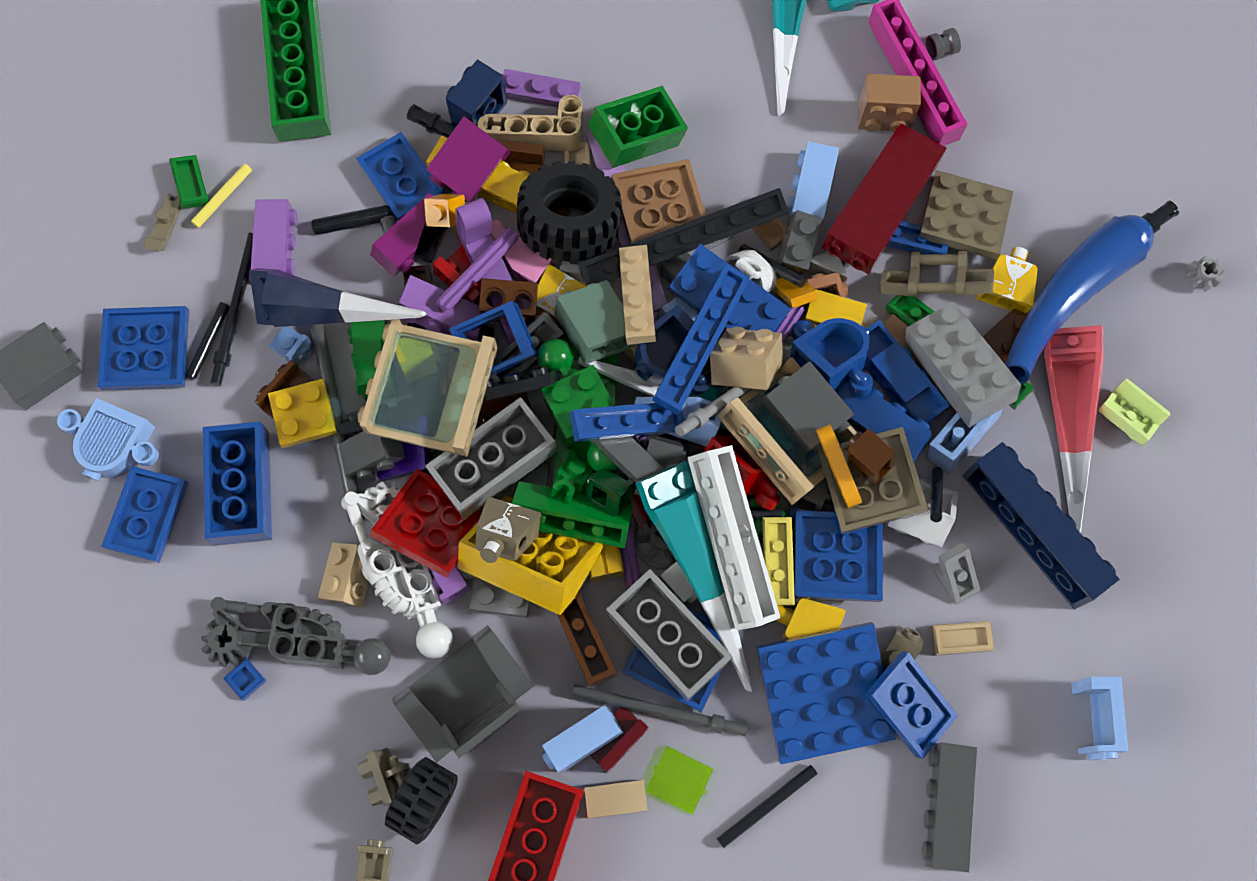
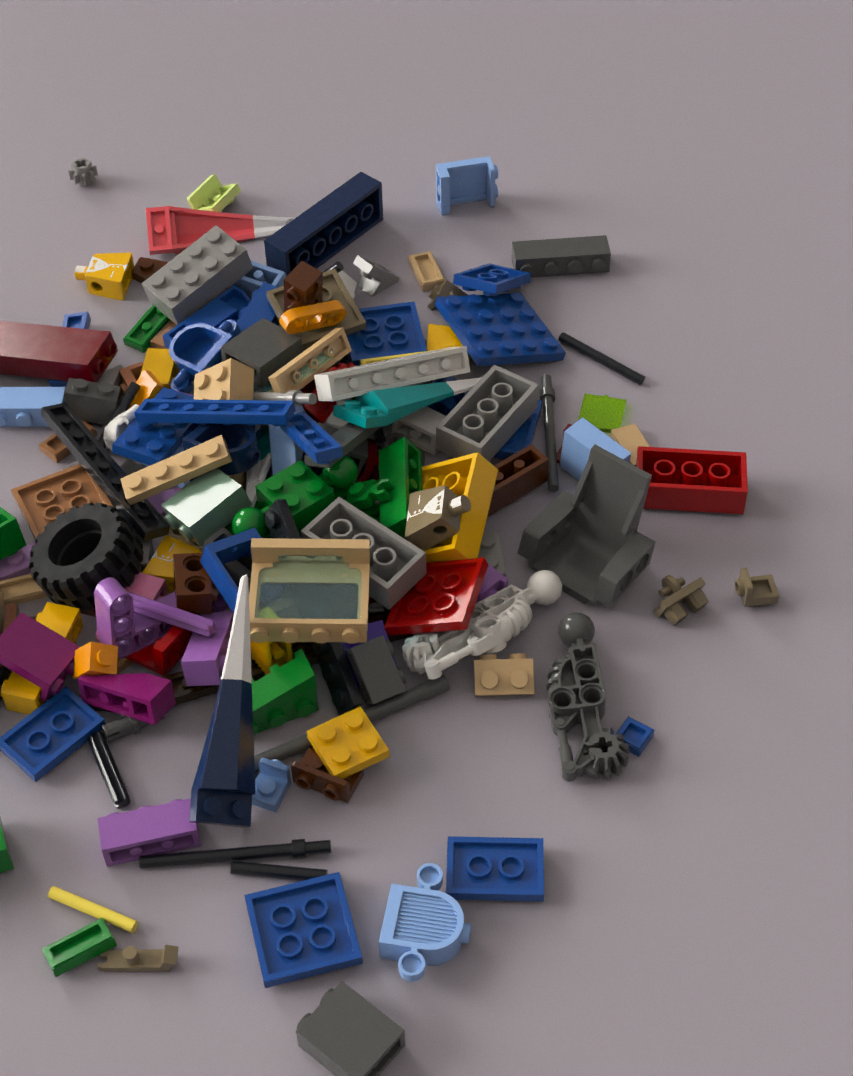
camera: 100 degrees left, 25 degrees down
(236, 483) = (439, 781): blue brick -> none
(421, 800) = (691, 550): black tyre -> none
(609, 491) = (375, 458): dark green brick -> none
(959, 287) = (110, 296): dark tan bar -> none
(966, 214) = (48, 302): dark tan plate -> none
(1089, 269) = (92, 228): blue animal -> none

